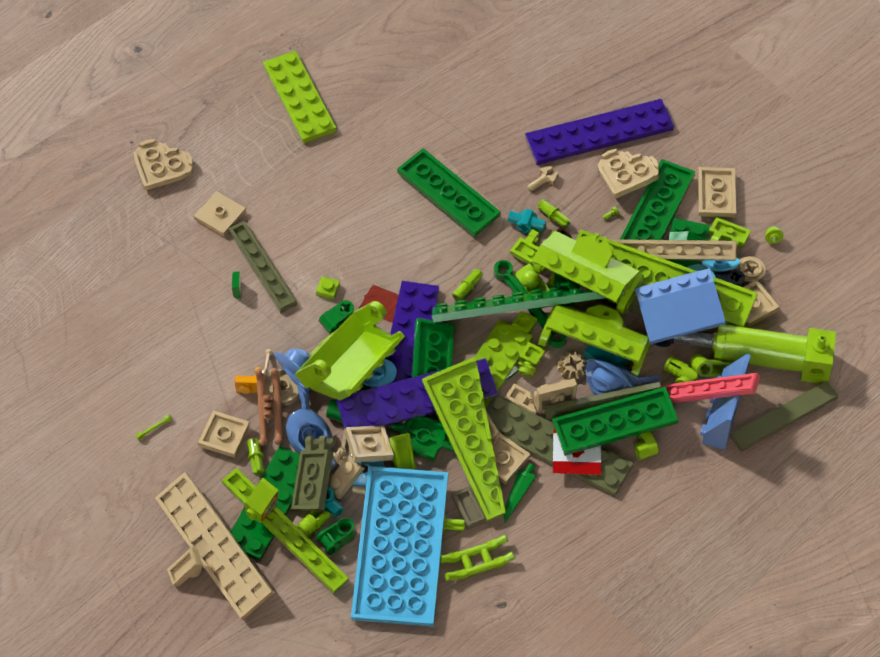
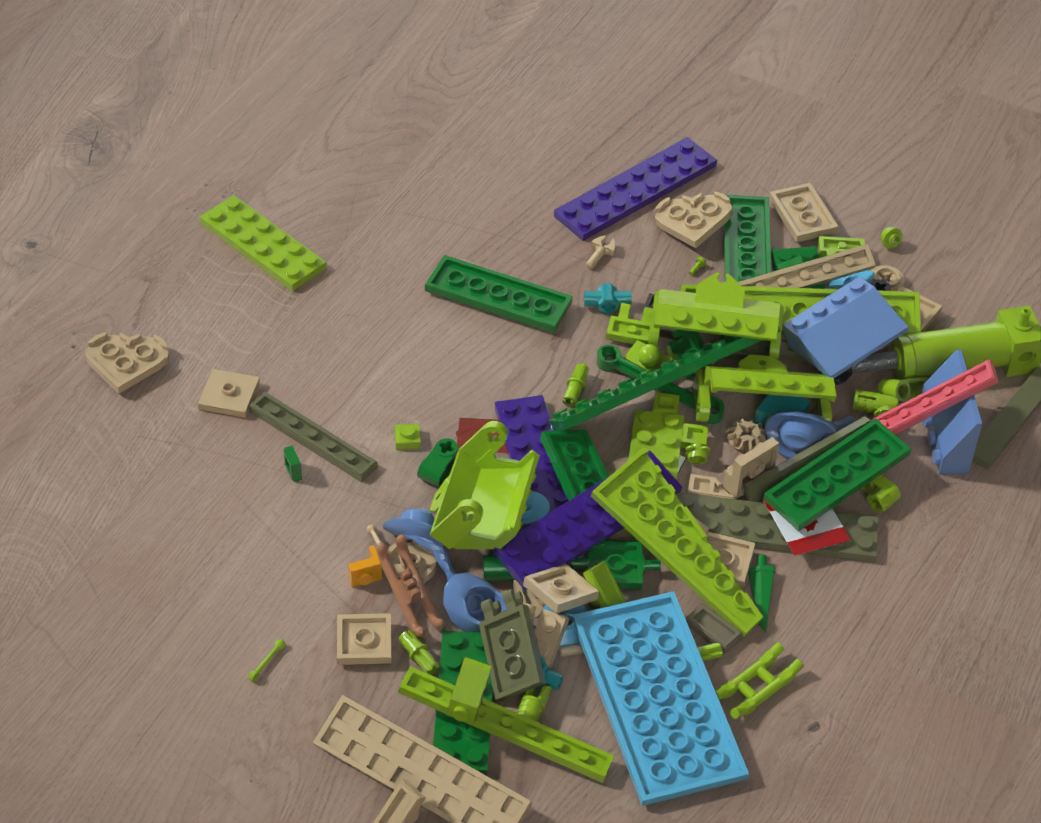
camera: 25 degrees left, 10 degrees down
(334, 538) = (569, 713): green piece -> none
(553, 213) = (632, 282): lime axle -> none

